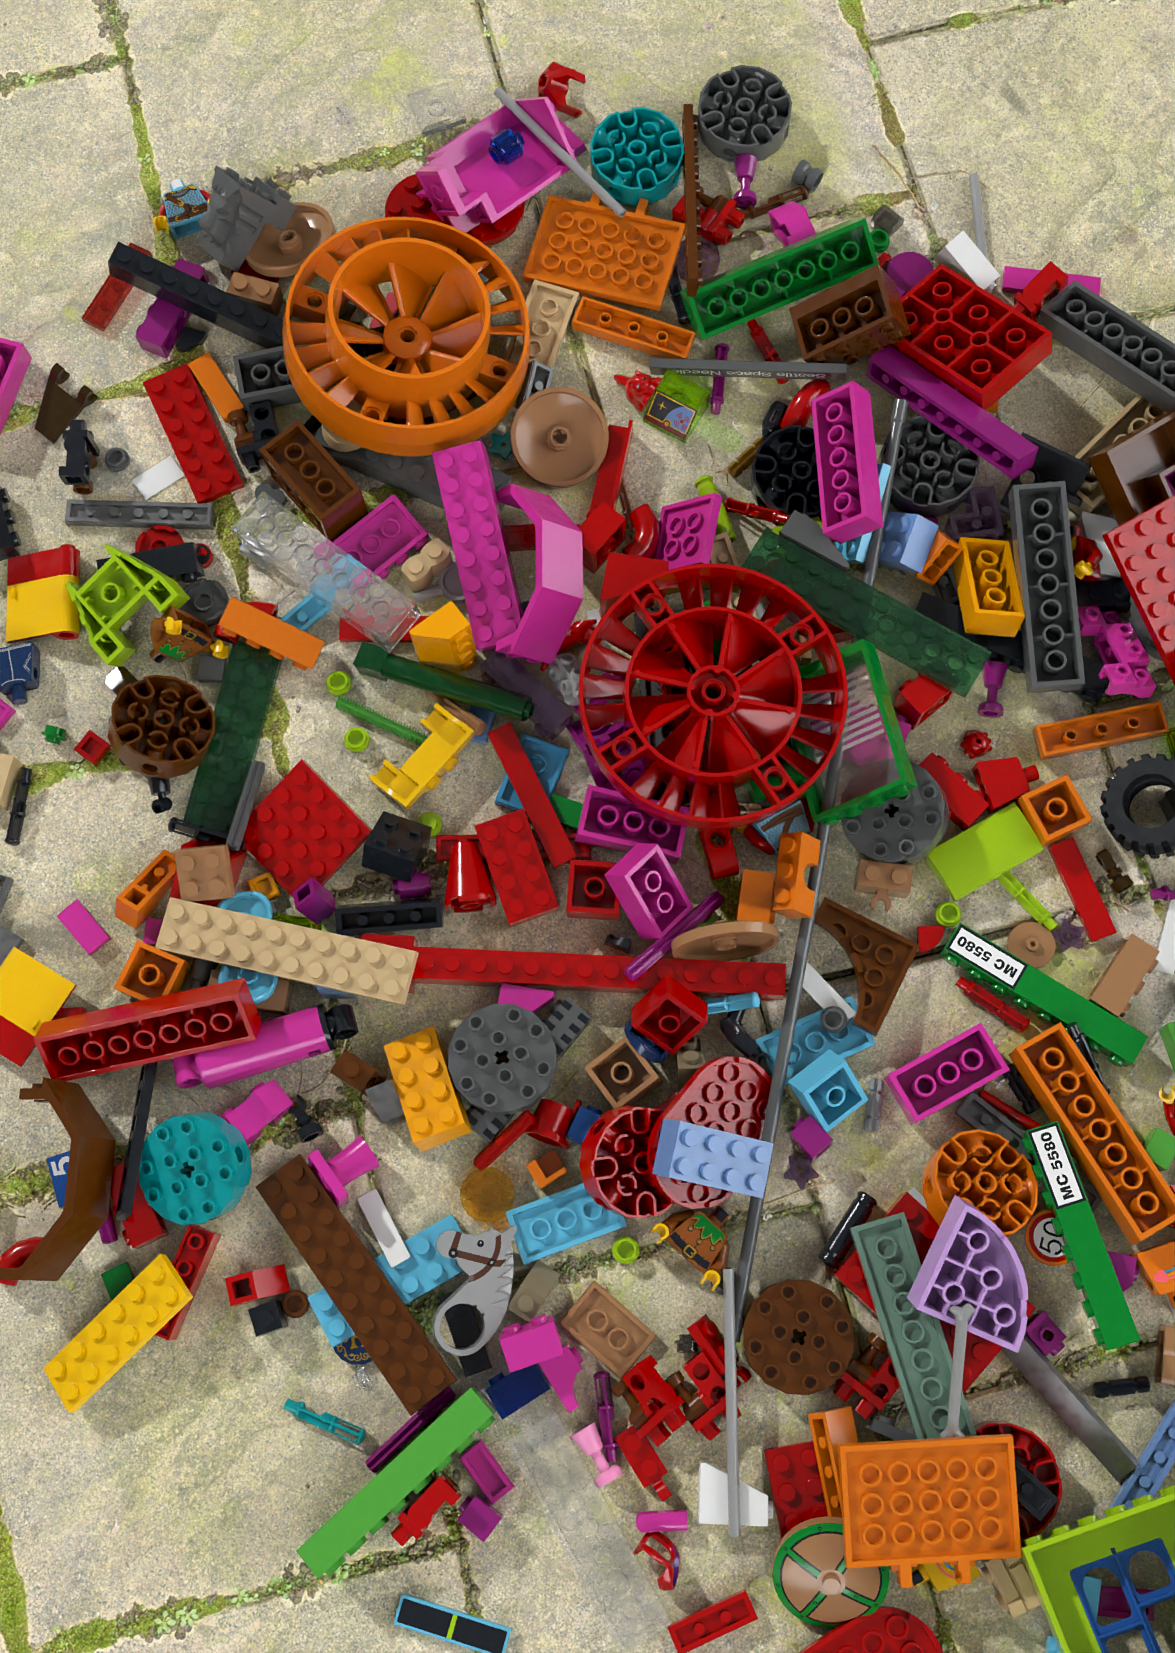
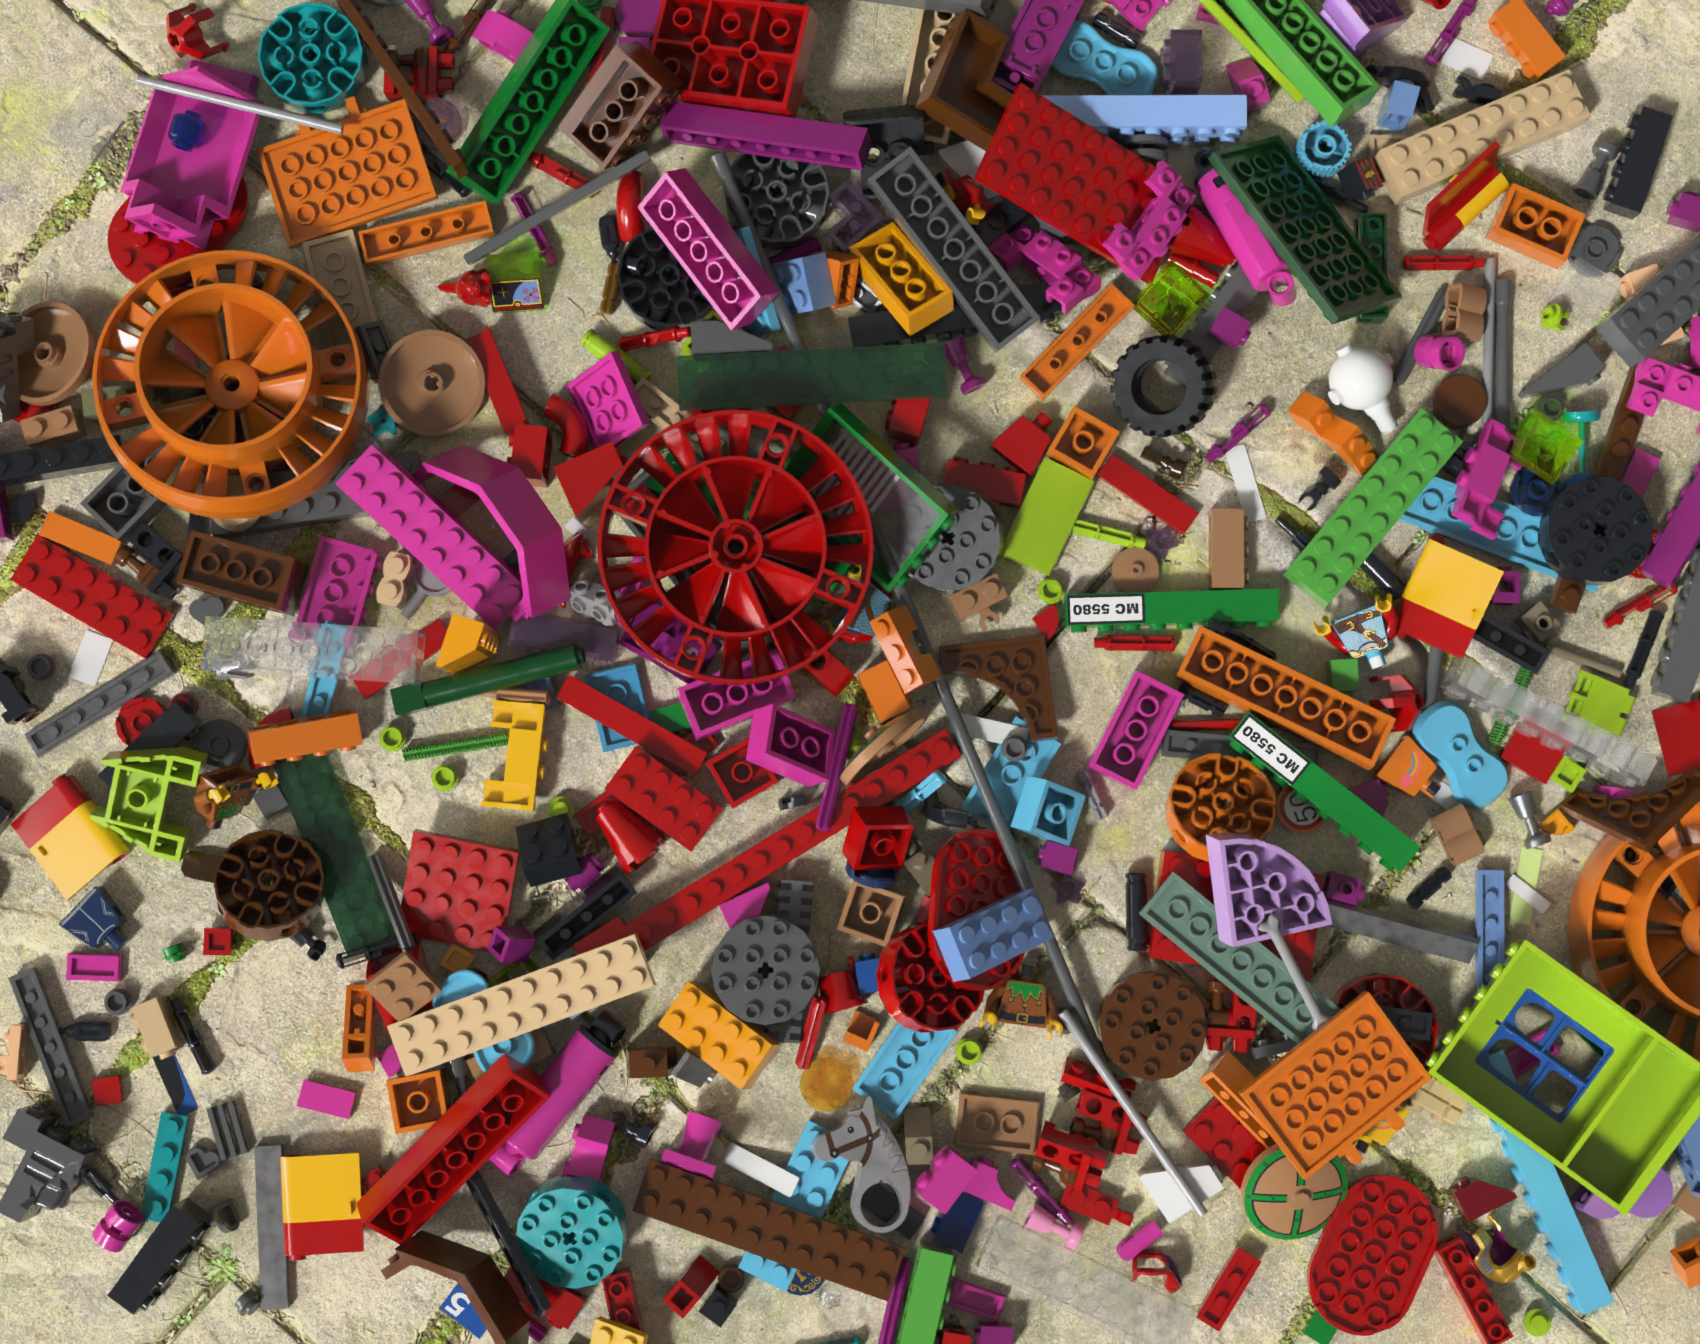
camera: 40 degrees left, 10 degrees up
(973, 748) = (975, 428): red animal -> none

